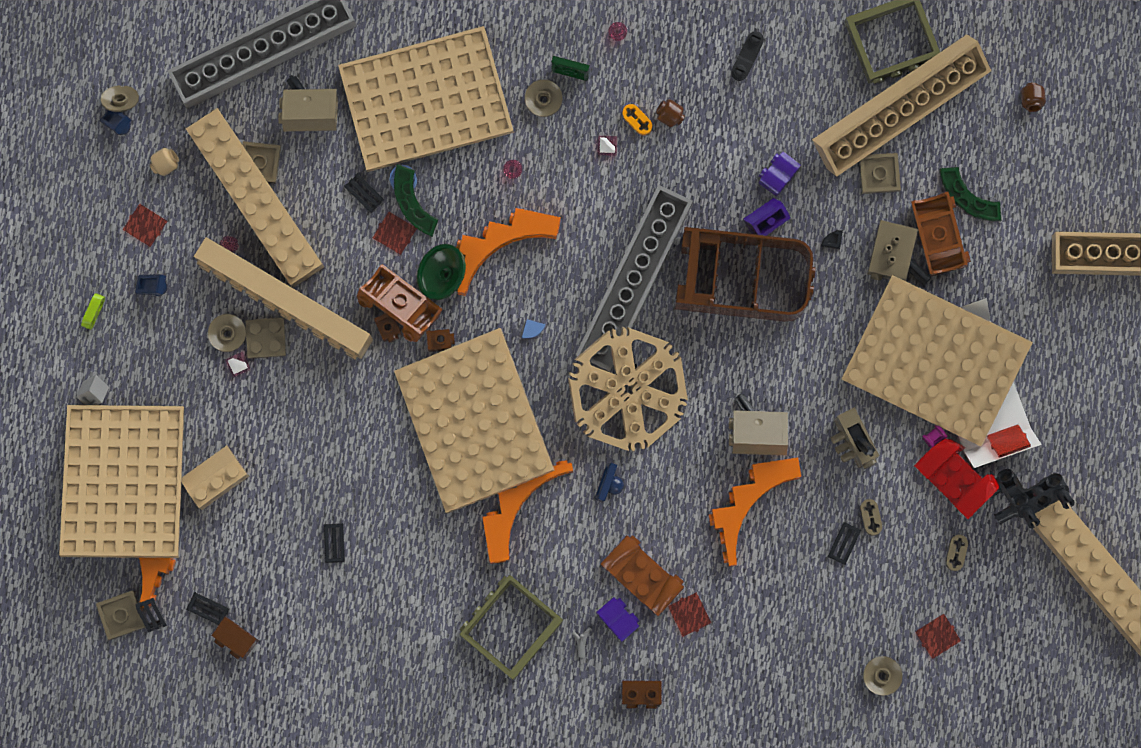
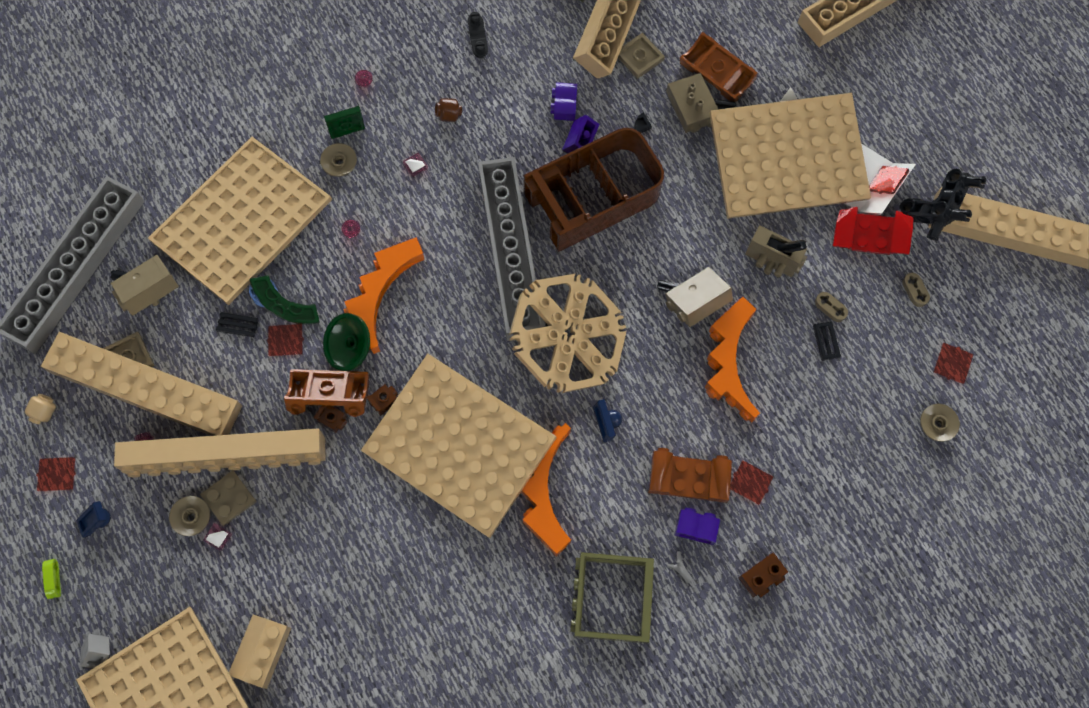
camera: 40 degrees left, 10 degrees down
(326, 540) = (398, 635): black tile -> none
(532, 329) = (455, 340): medium blue tile -> none
(640, 116) = (425, 131): light orange beam -> none
(934, 436) = (830, 214): magenta bush -> none
(965, 199) = (723, 36): dark green tile -> none

